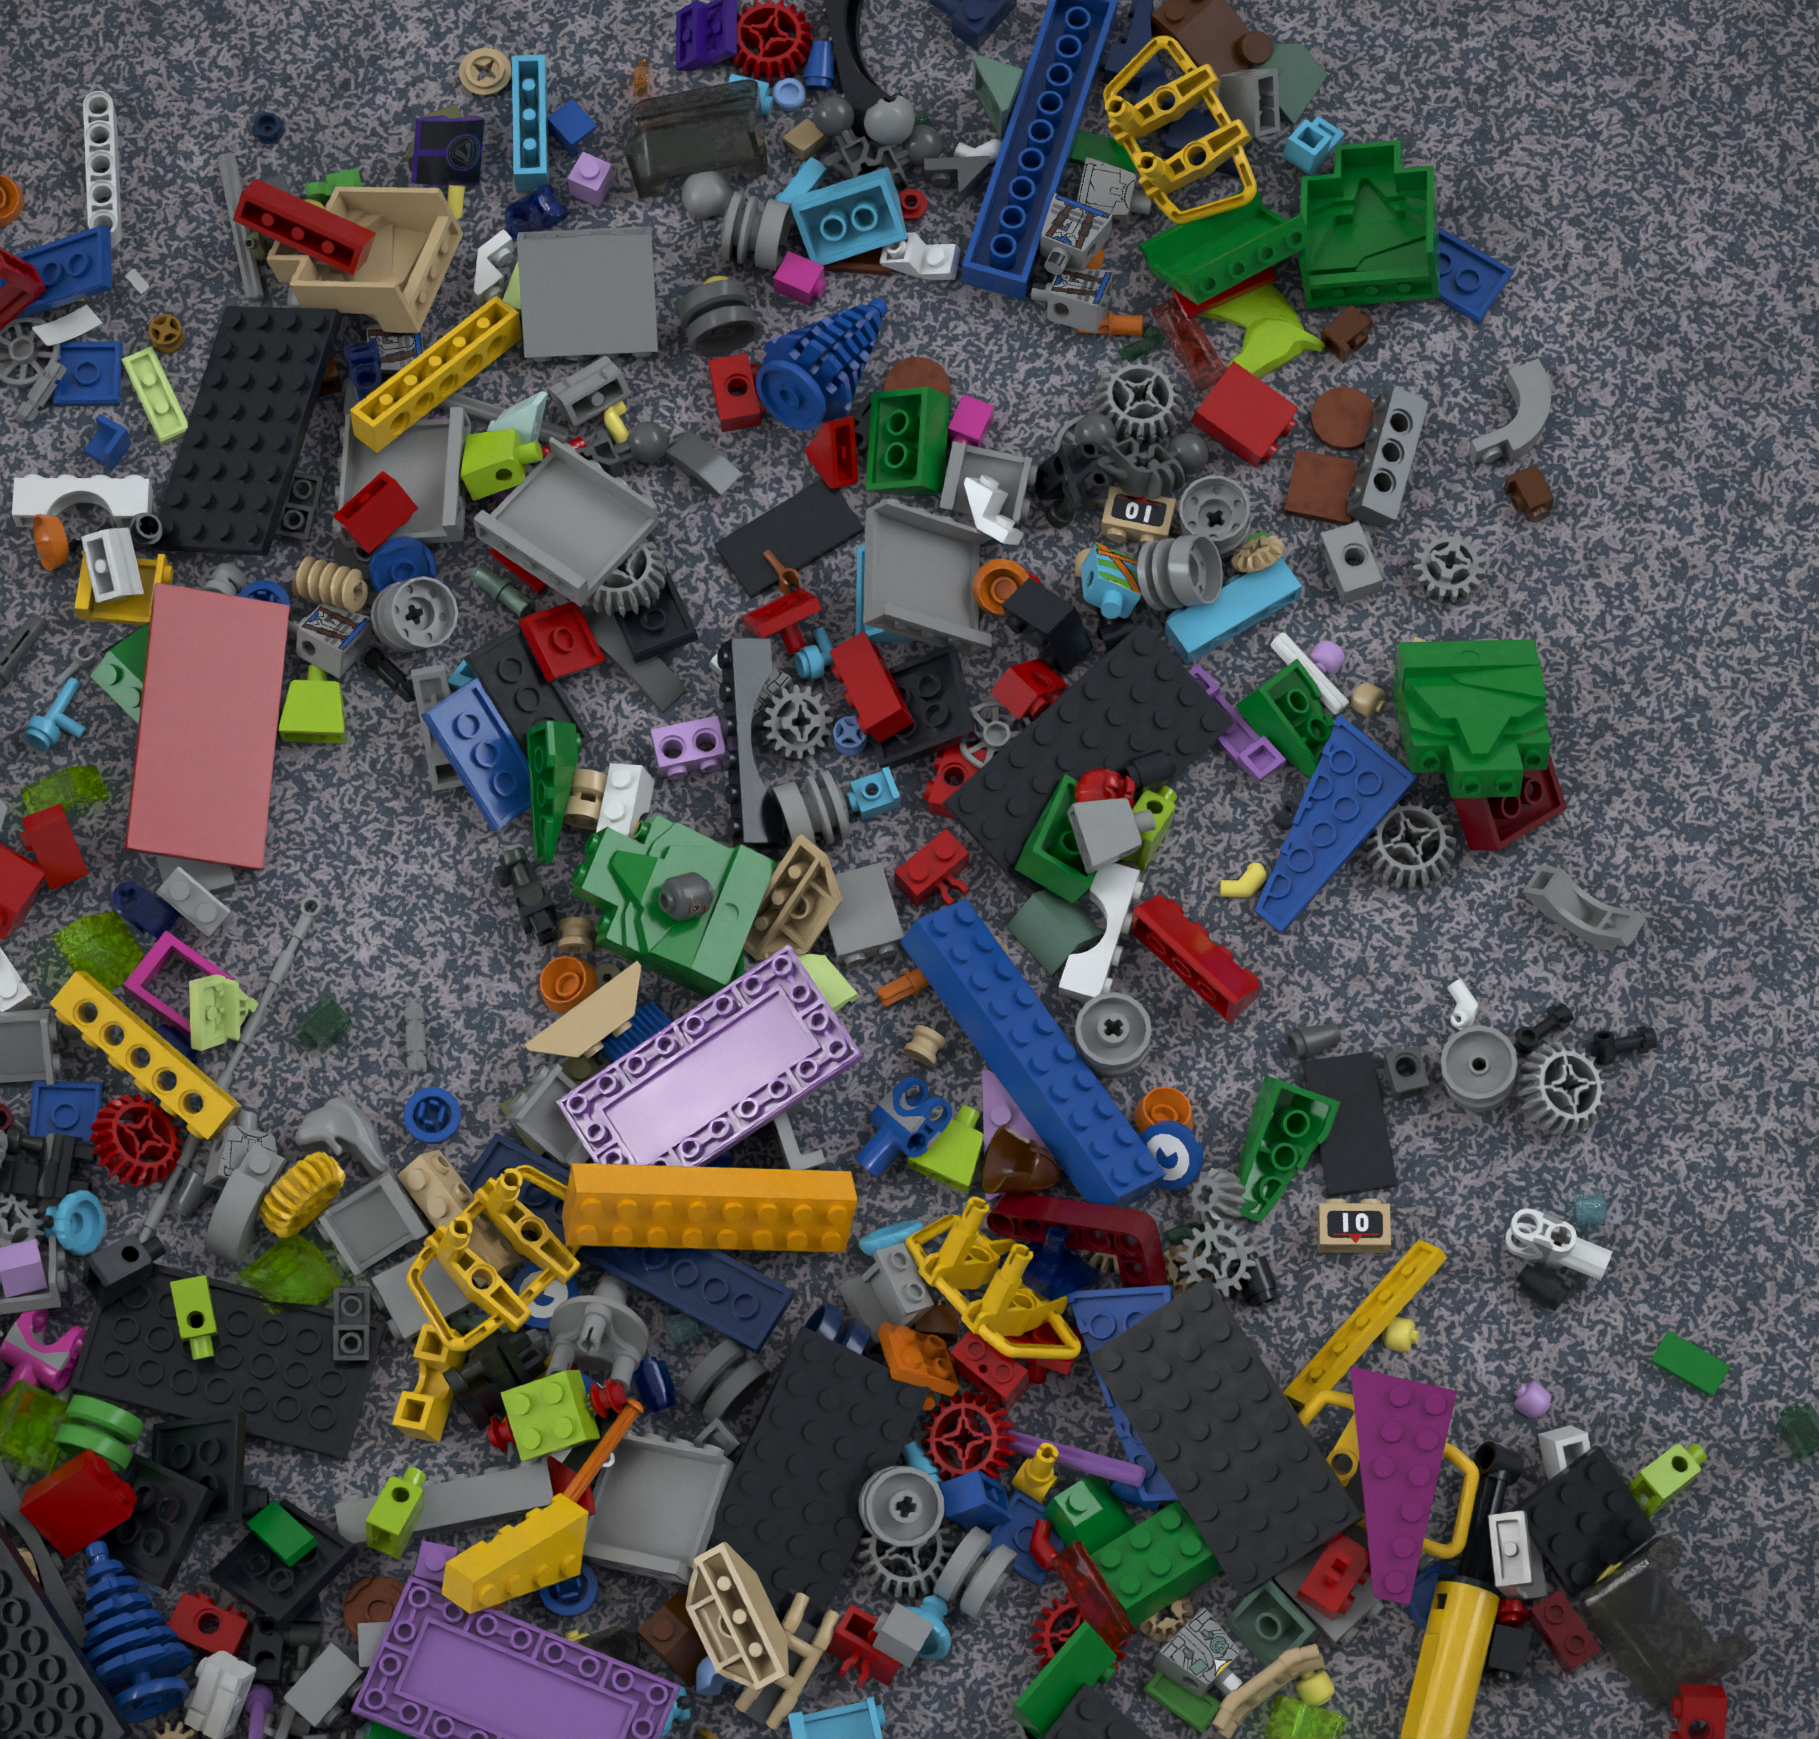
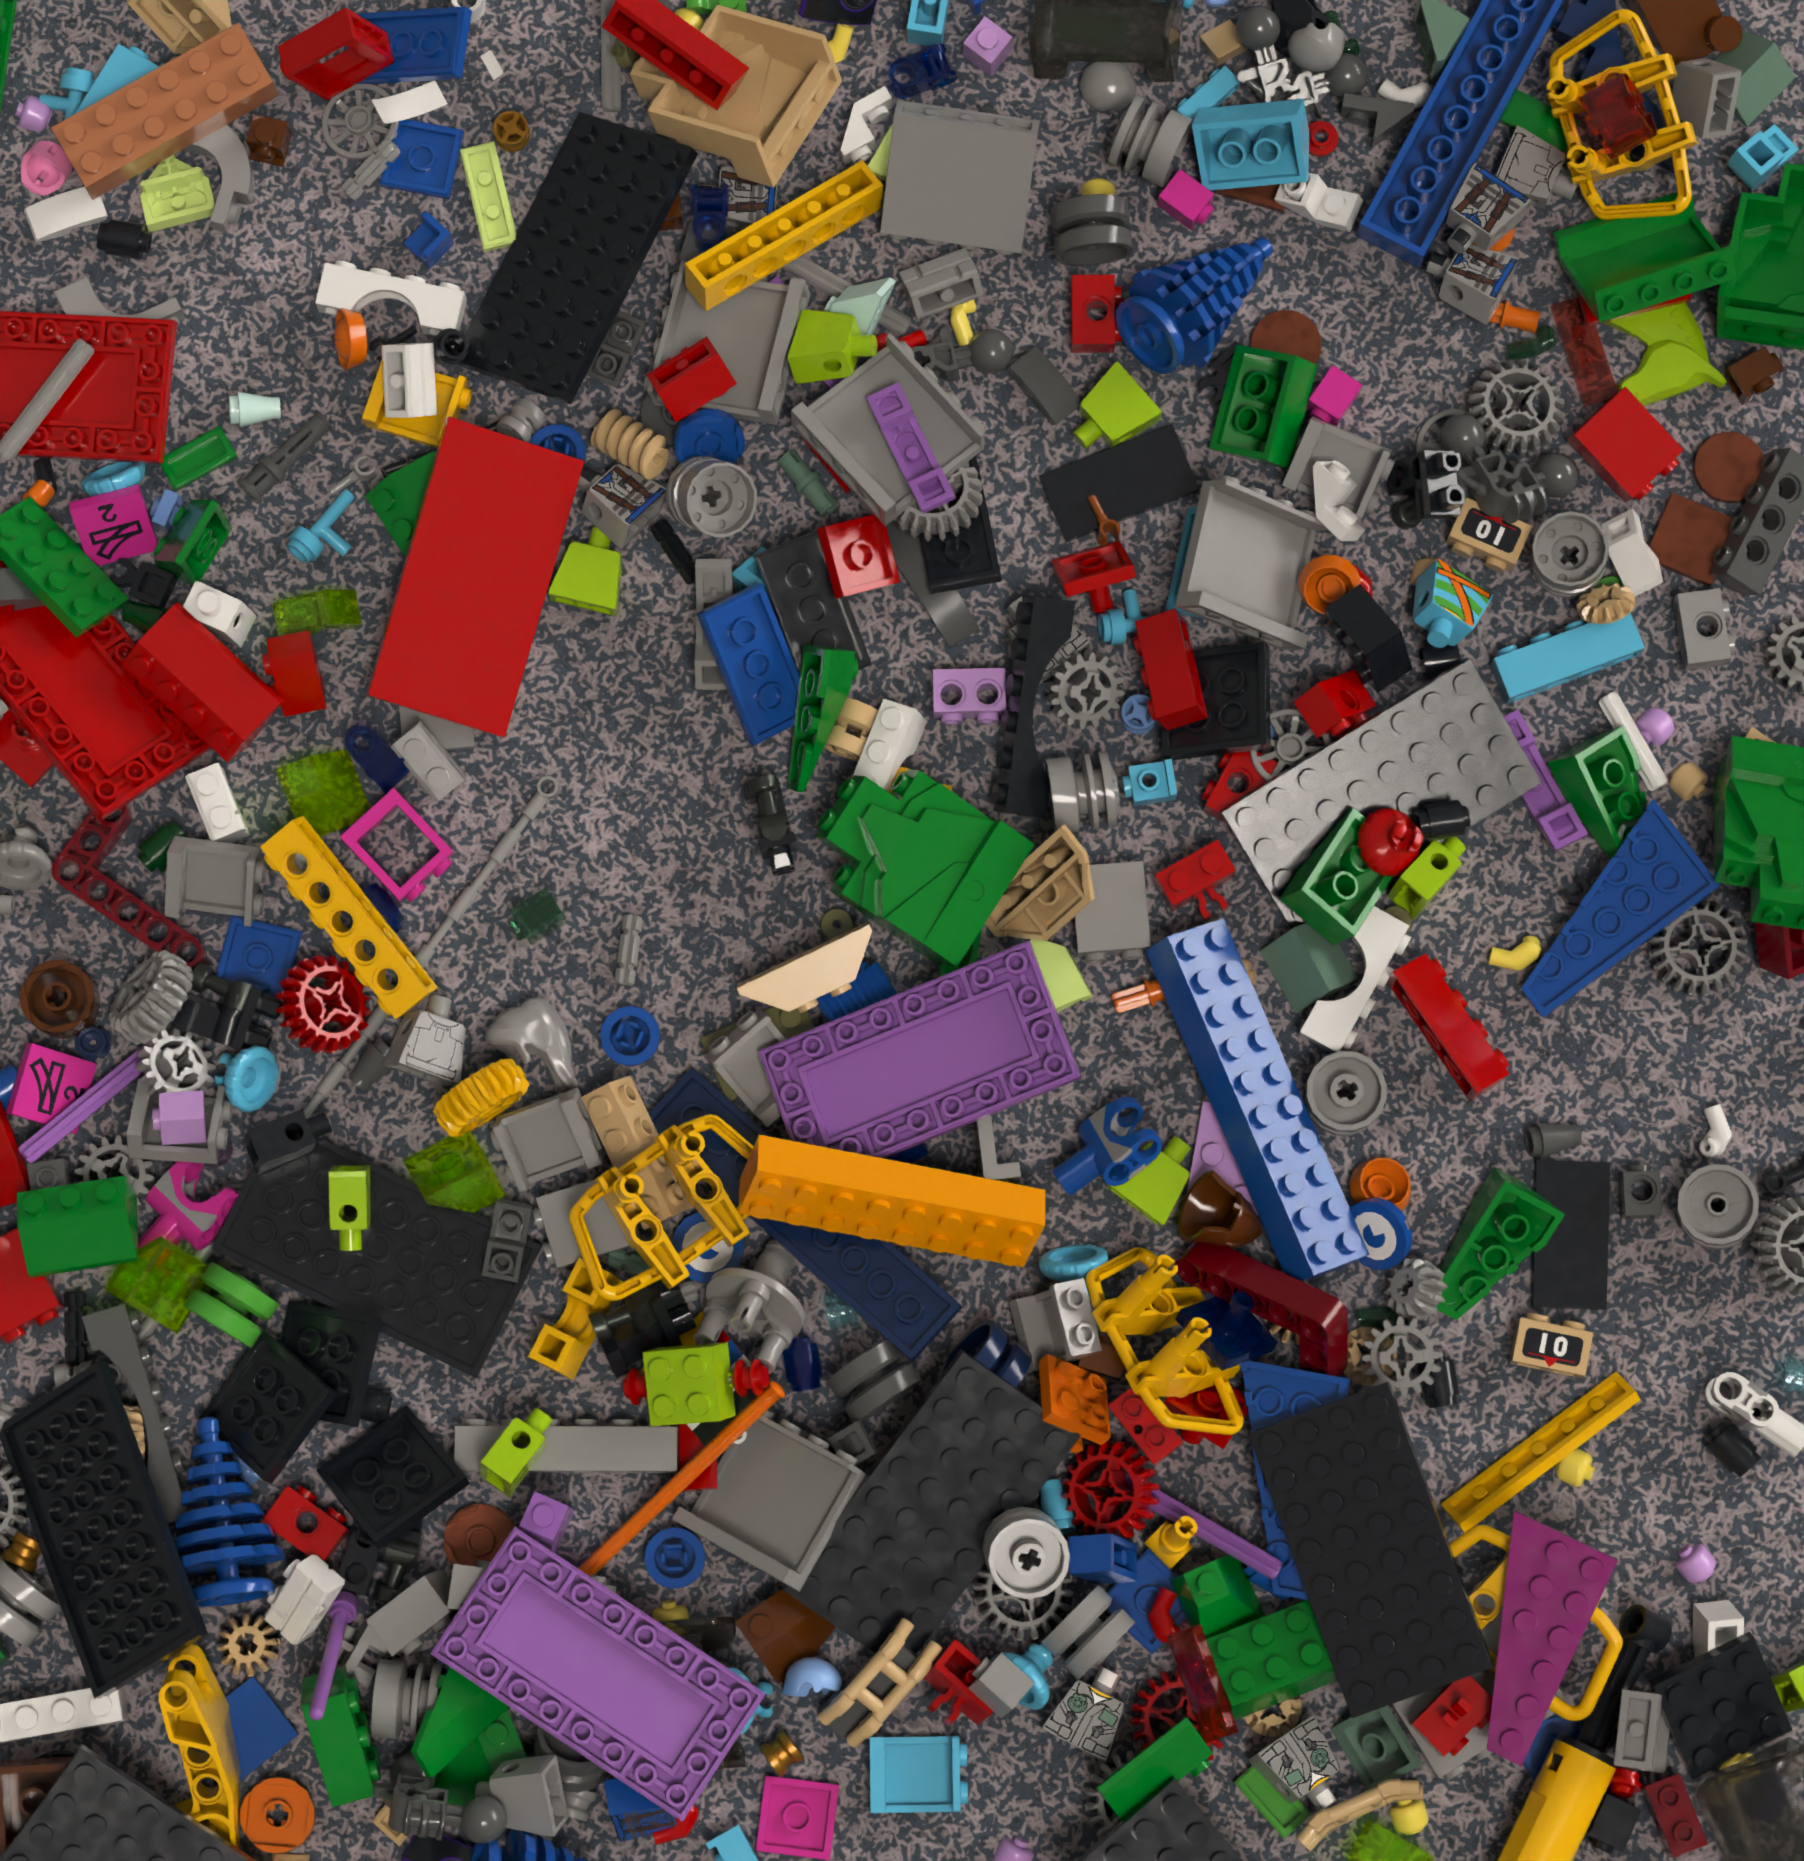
camera: 15 degrees right, 10 degrees up
(78, 1503) = (197, 1375): red brick -> none
(217, 1011) = (430, 883): yellowish green slope -> none
(236, 1211) = (417, 1094): light grey arch -> none
(282, 1533) = (396, 1447): green tile -> none
(519, 1558) = (628, 1530): yellow wedge -> none
(575, 935) = (813, 873): tan wheel -> none
(579, 982) = (797, 934): orange hat -> none
(589, 531) = (910, 448): none -> medium lavender slope
(686, 896) = (932, 868): dark grey head -> none
(736, 1619) = (836, 1638): tan wedge -> none
(773, 472) = (1115, 410): none -> lime torso
(835, 452) = (1185, 403): red slope -> none
(924, 1045) = (1149, 1063): tan wheel -> none
(991, 1654) = (1088, 1715): none -> torso
(1107, 830) = (1384, 883): light grey torso -> none
(1174, 123) = (1618, 115): none -> clear red brick
(1180, 572) = (1519, 610): light grey wheel -> none
(1271, 508) = (1630, 554): none -> white slope

